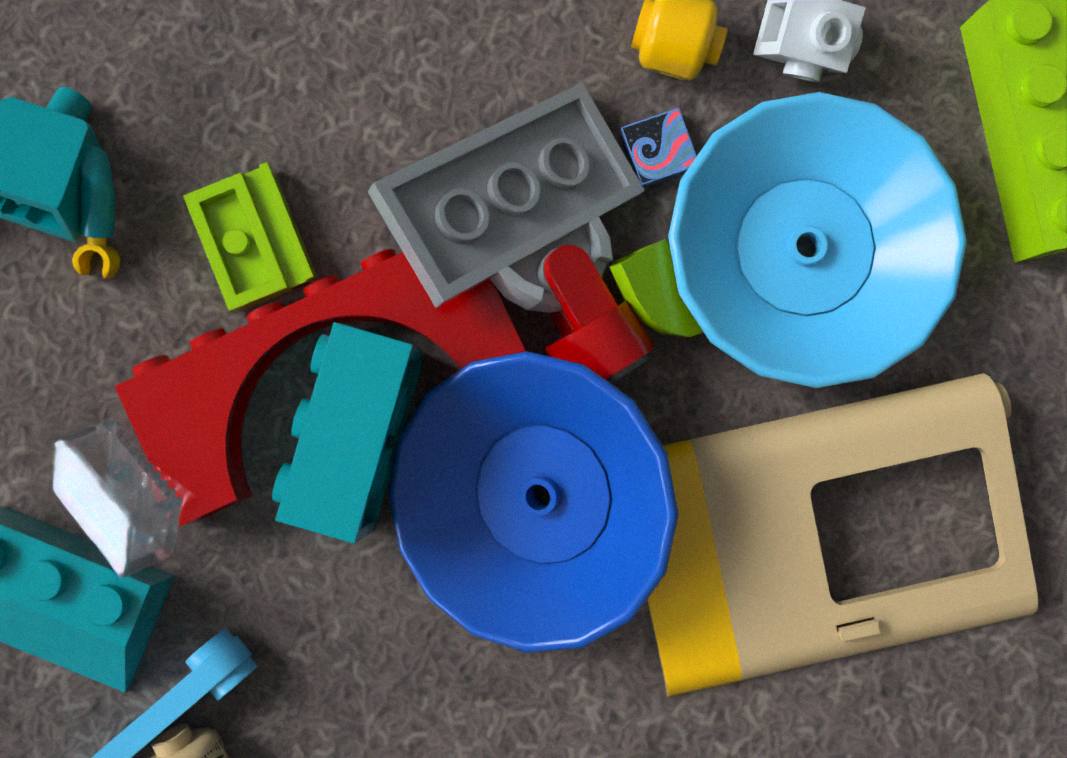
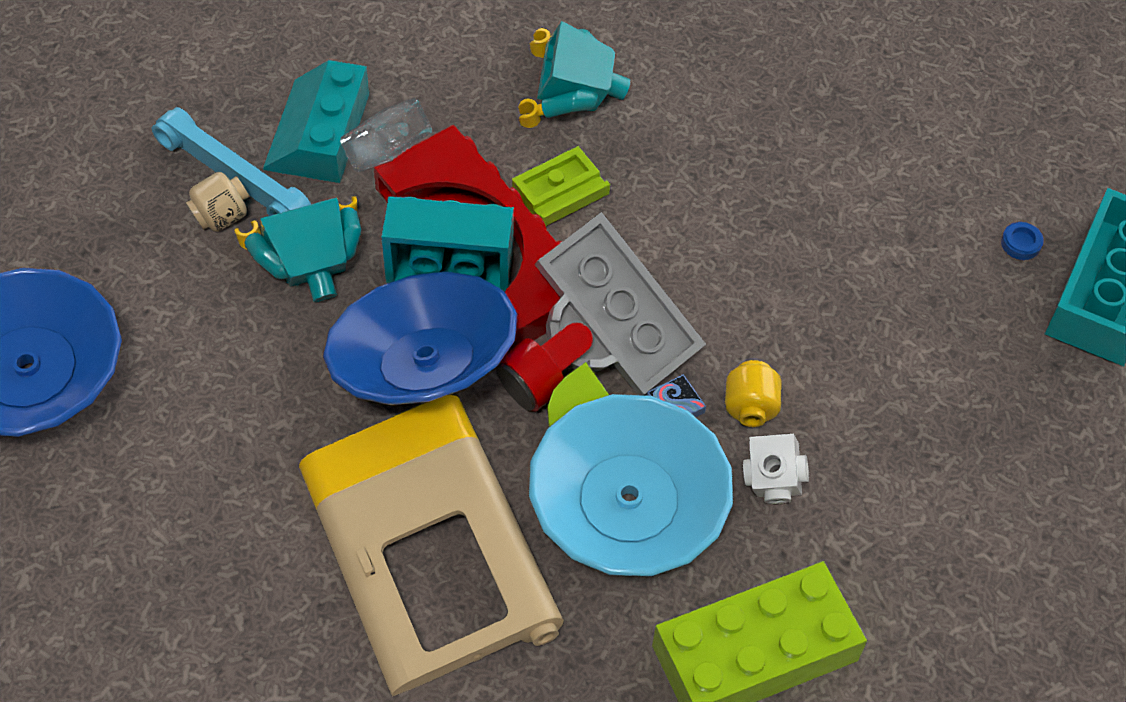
camera: 70 degrees right, 30 degrees down
(301, 646) = (306, 244): none -> teal torso

